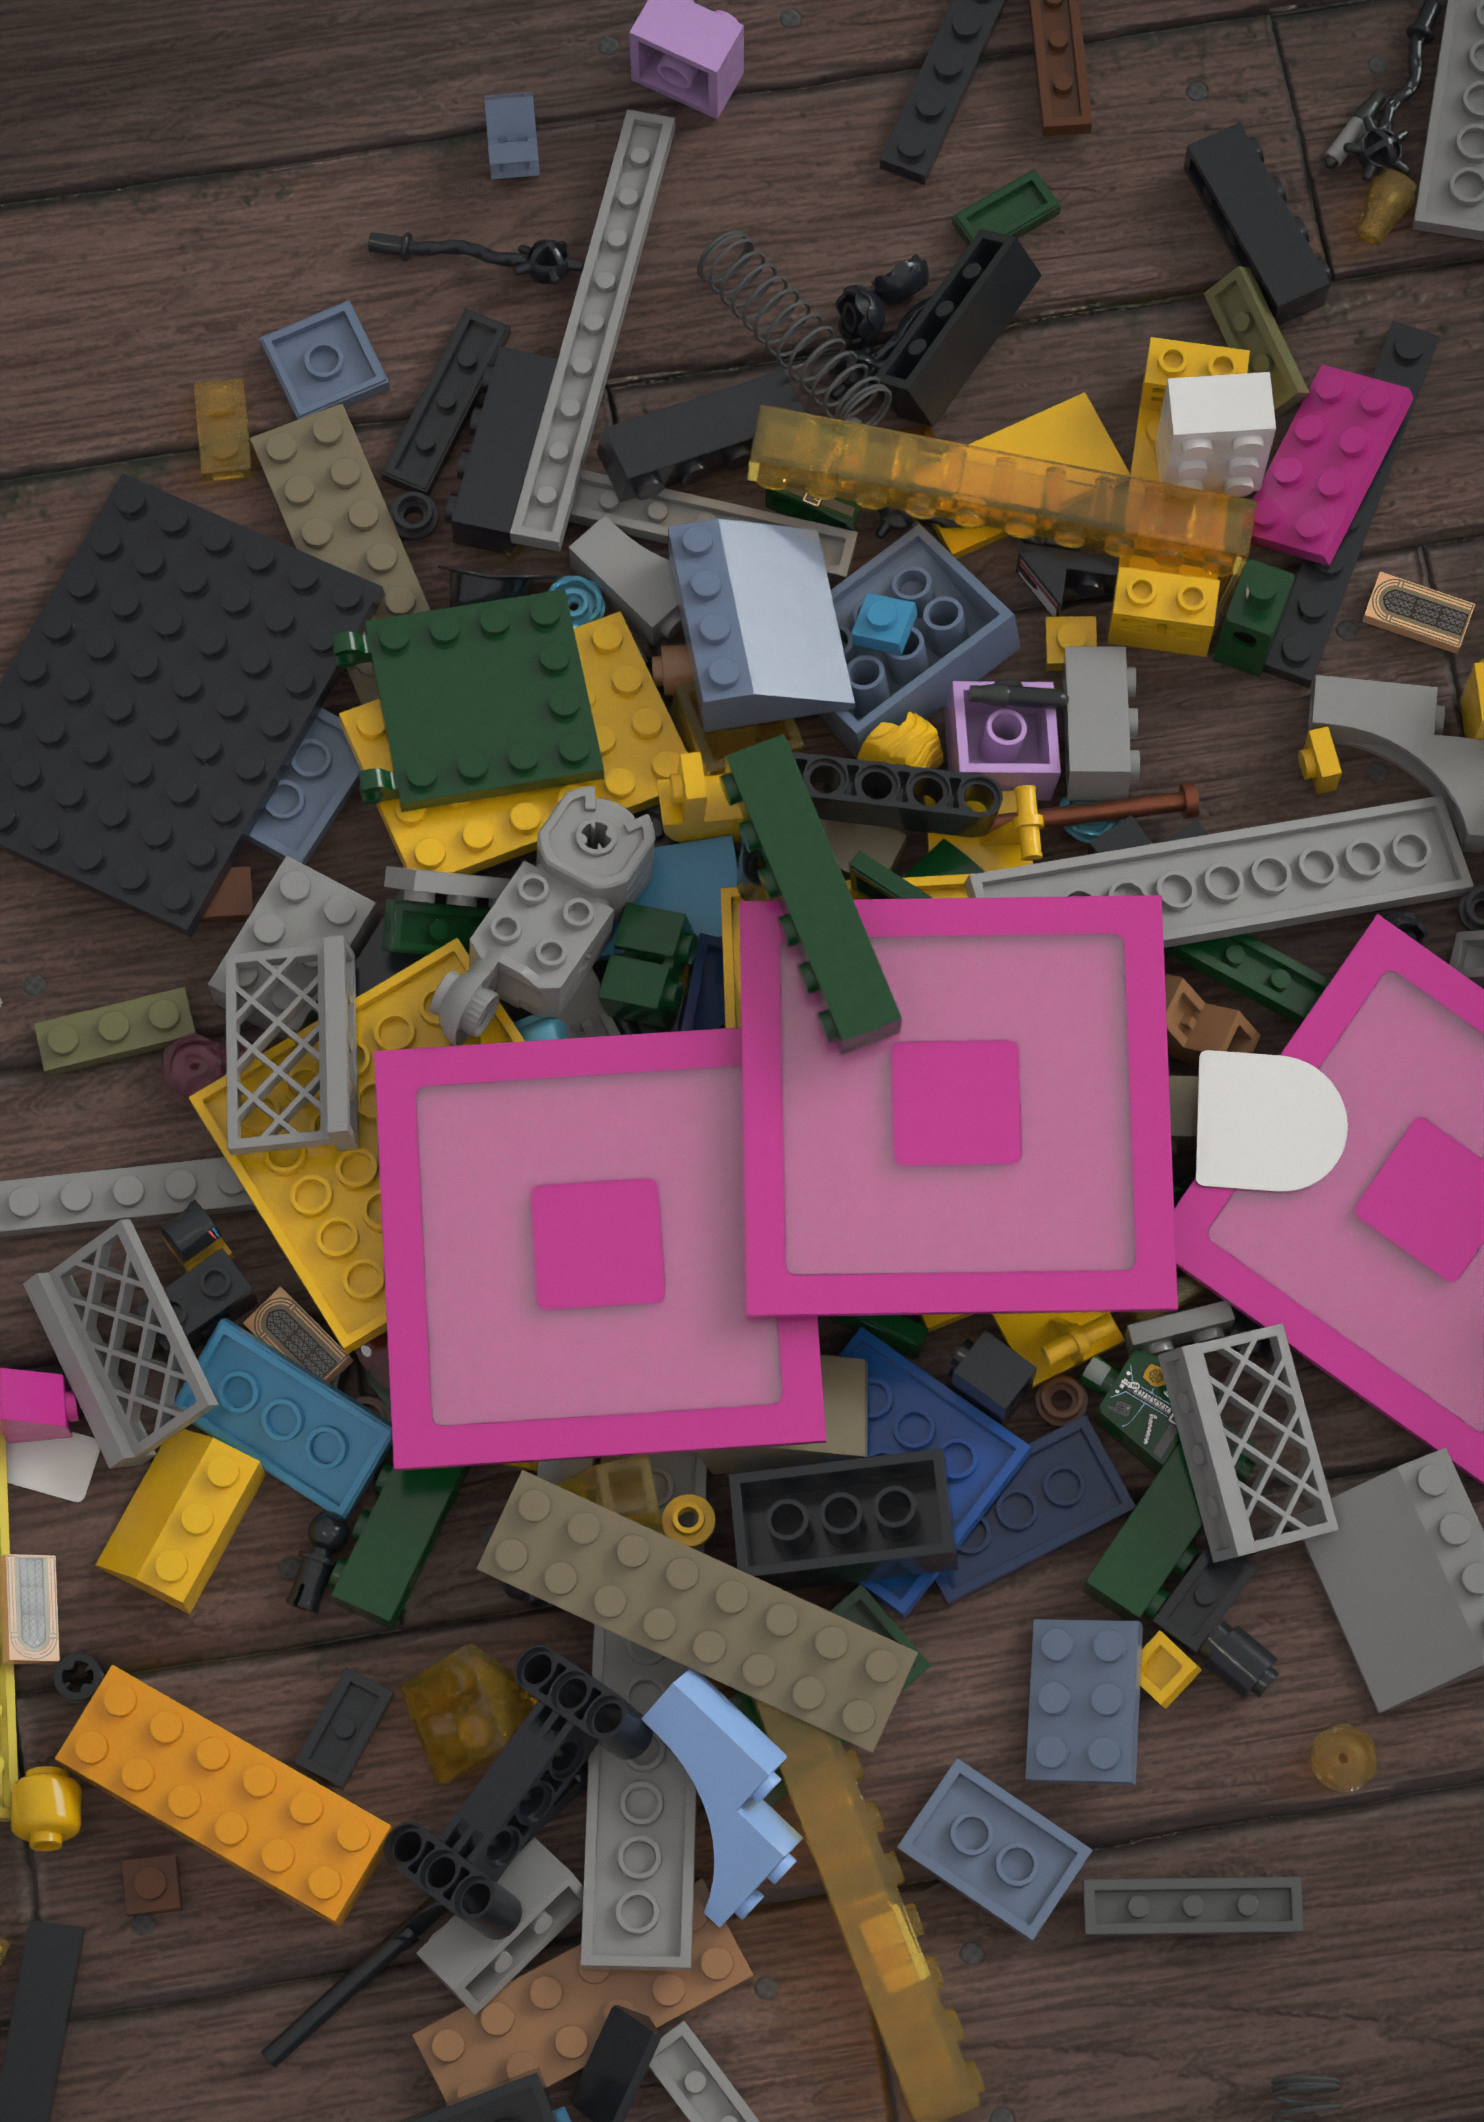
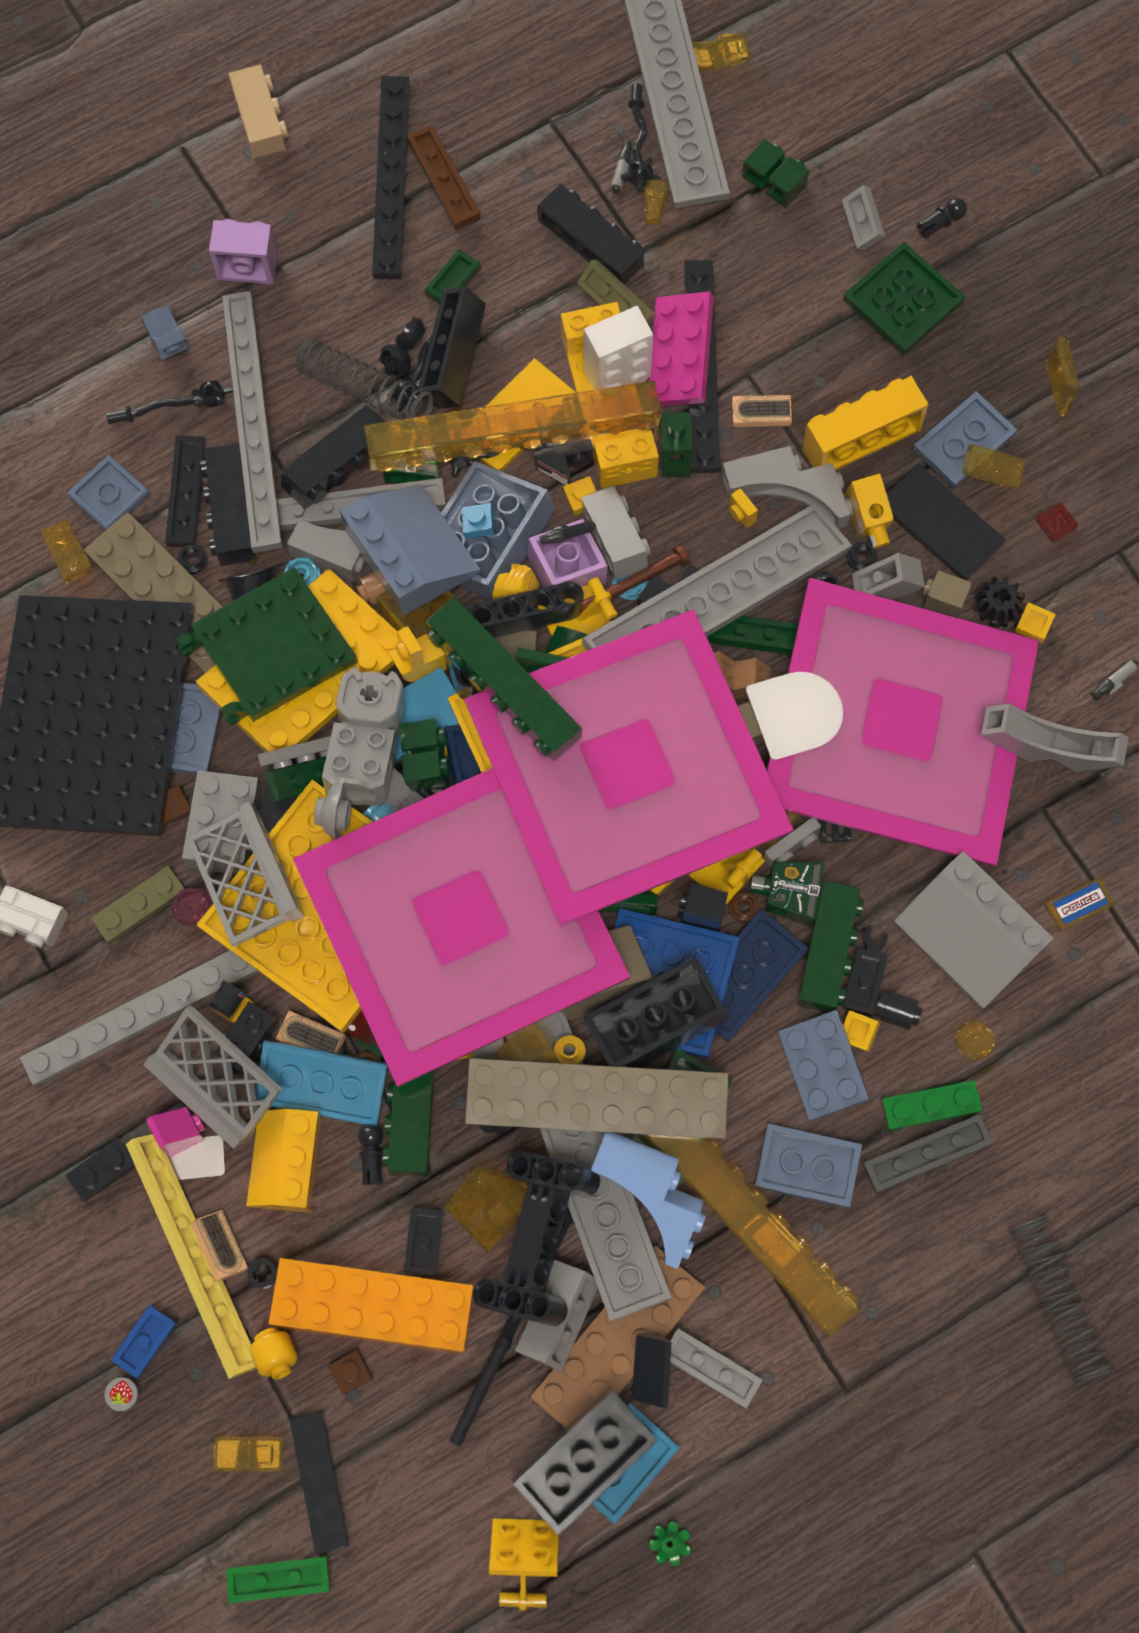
camera: 20 degrees left, 0 degrees up
(1213, 1463) = (841, 900): light grey fence -> none
(1231, 1833) = (931, 1105): none -> green plate

